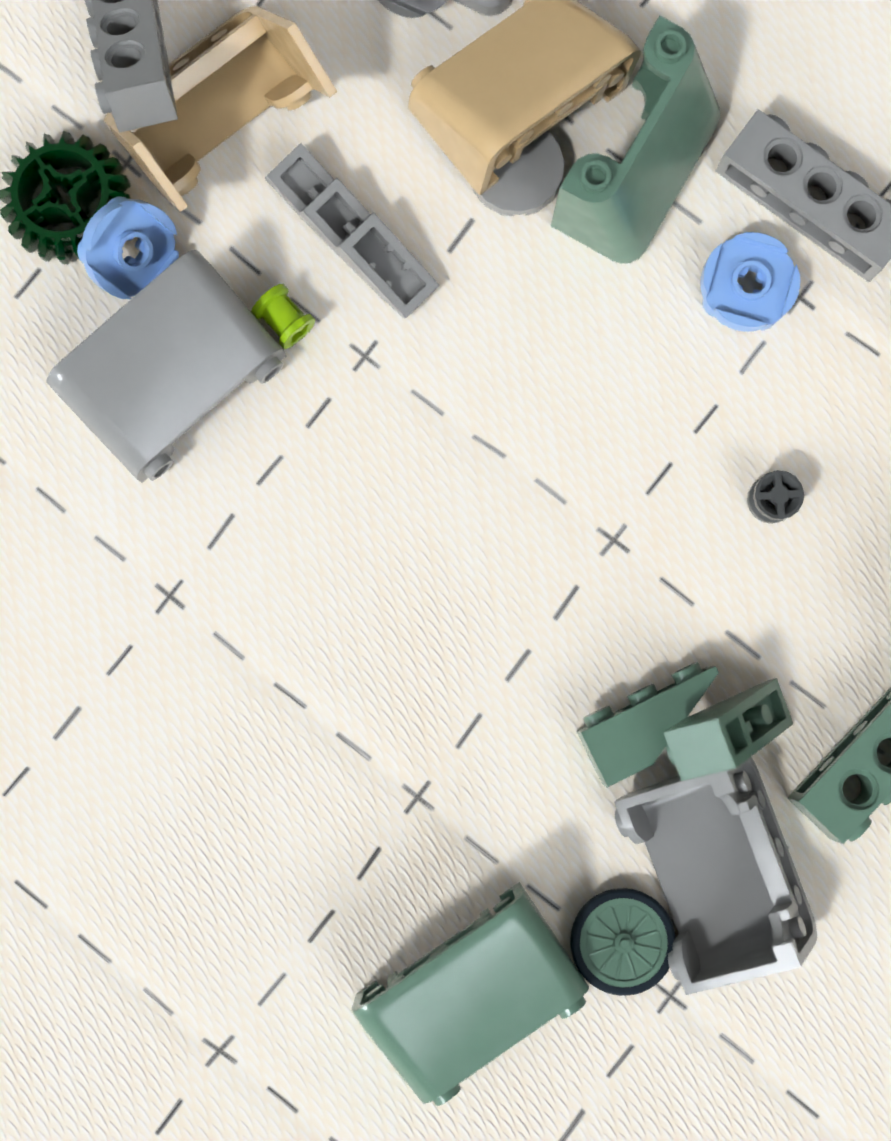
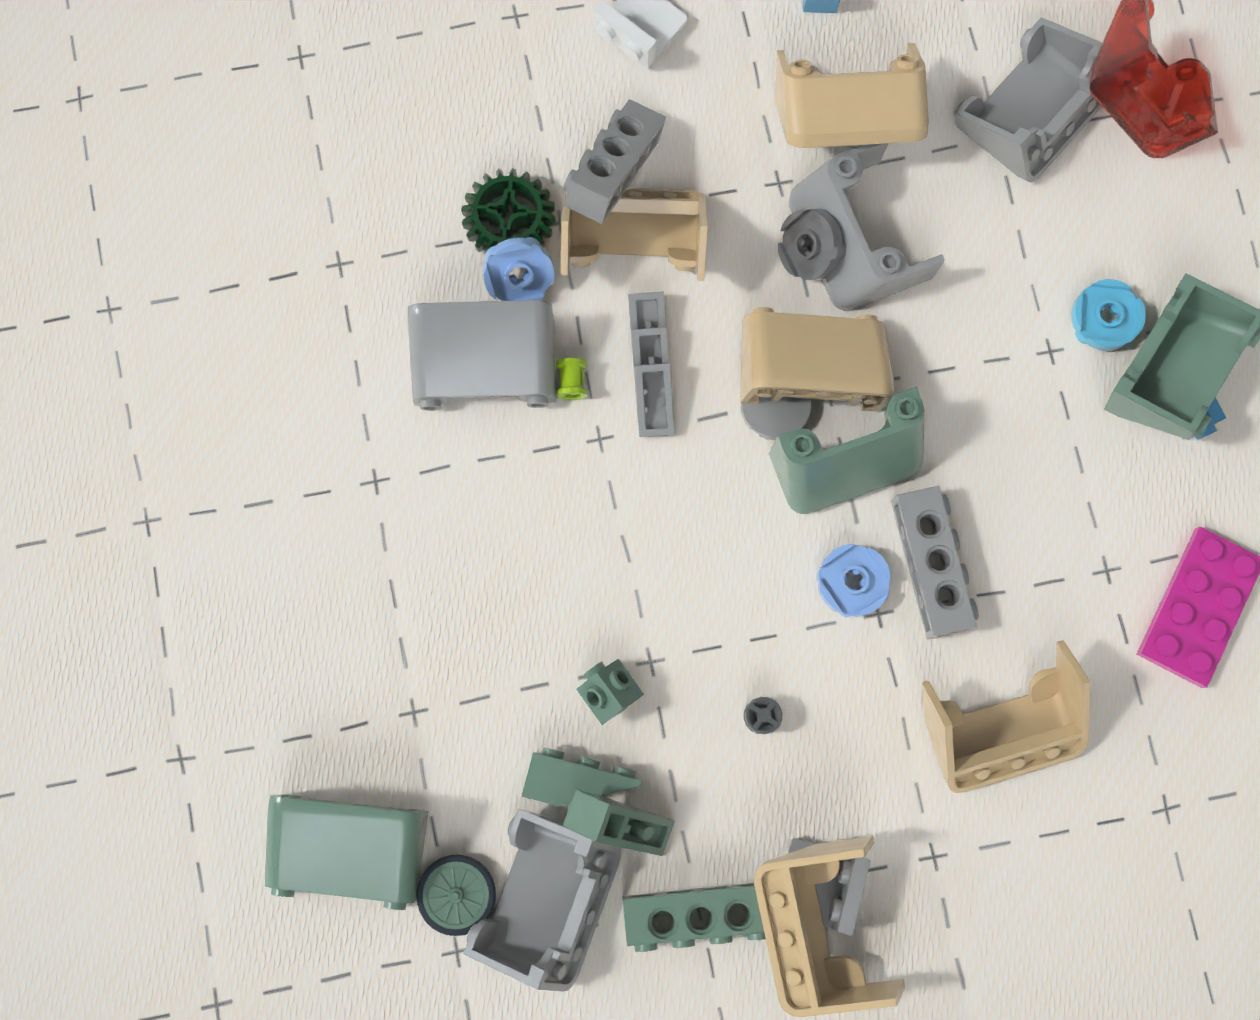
camera: 40 degrees right, 5 degrees down
(602, 603) = (609, 690): none -> sand green brick

